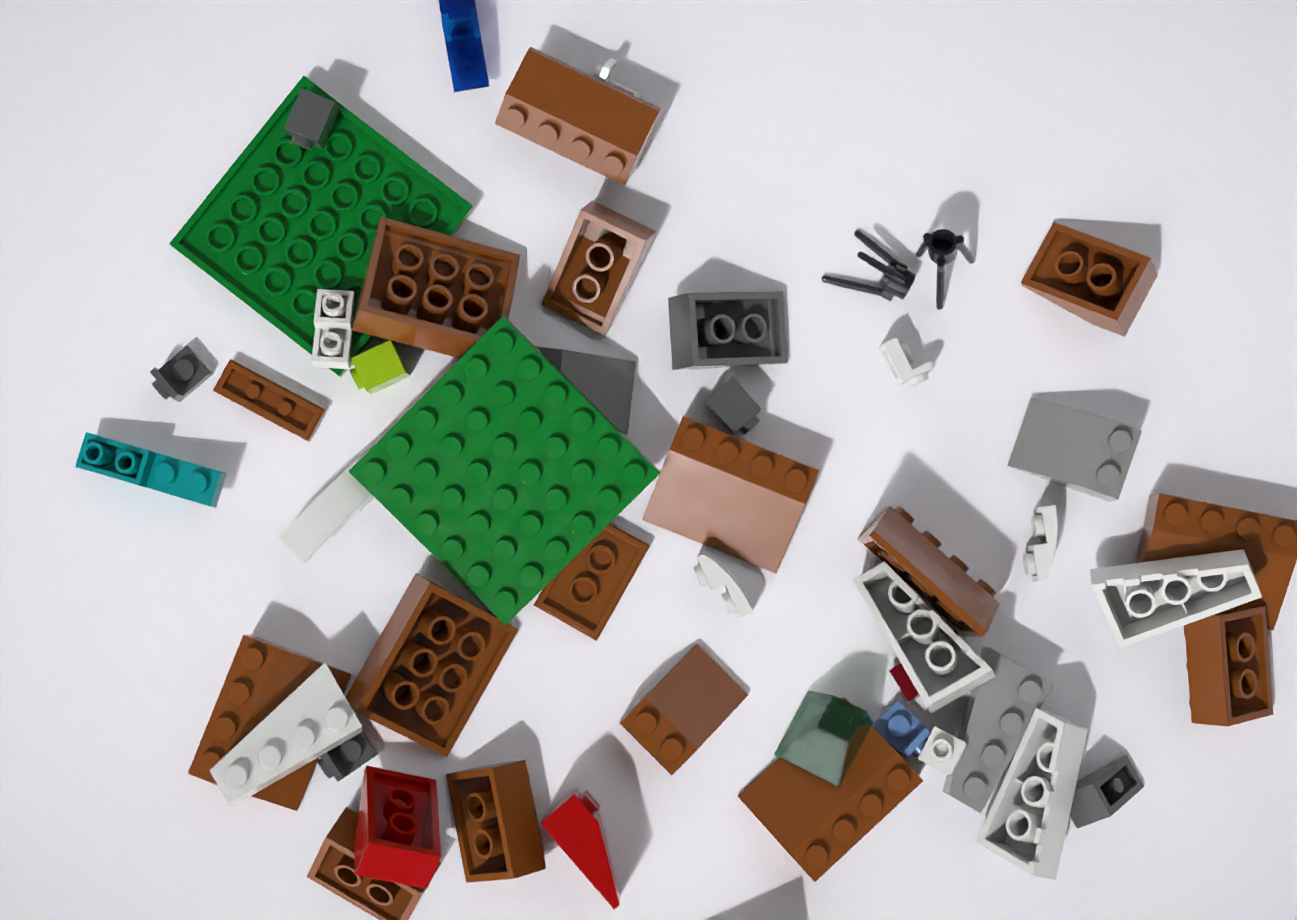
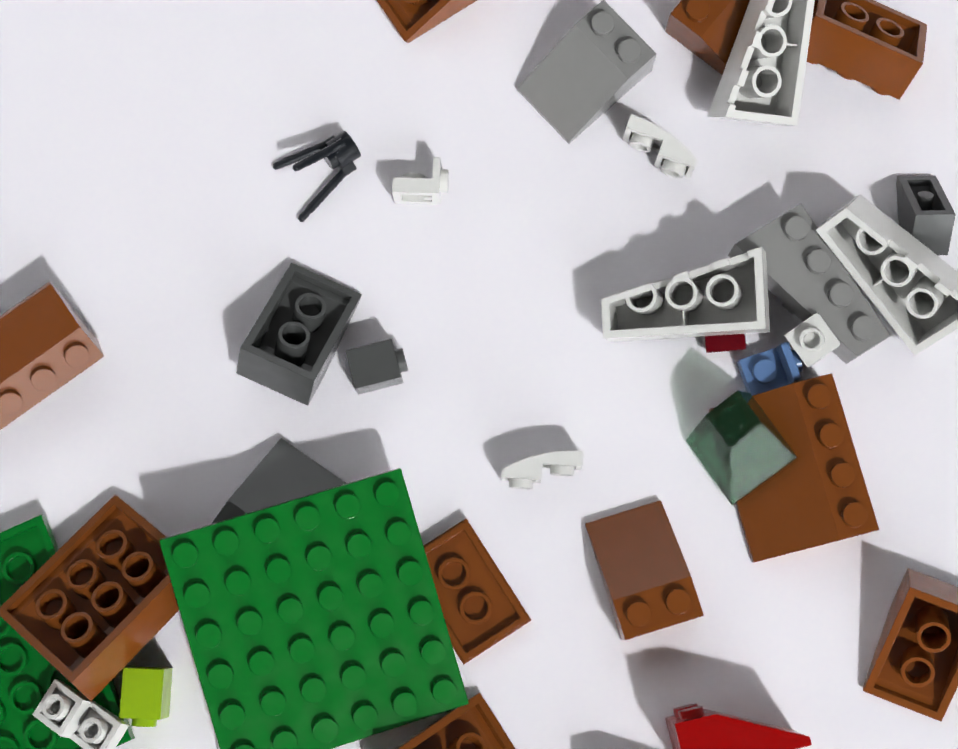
camera: 55 degrees left, 5 degrees down
(598, 266) = (168, 425): dark orange slope -> none
(730, 494) = (457, 414): slope -> none
(930, 572) = (633, 262): dark orange slope -> none
(942, 250) = (334, 89): black plant -> none

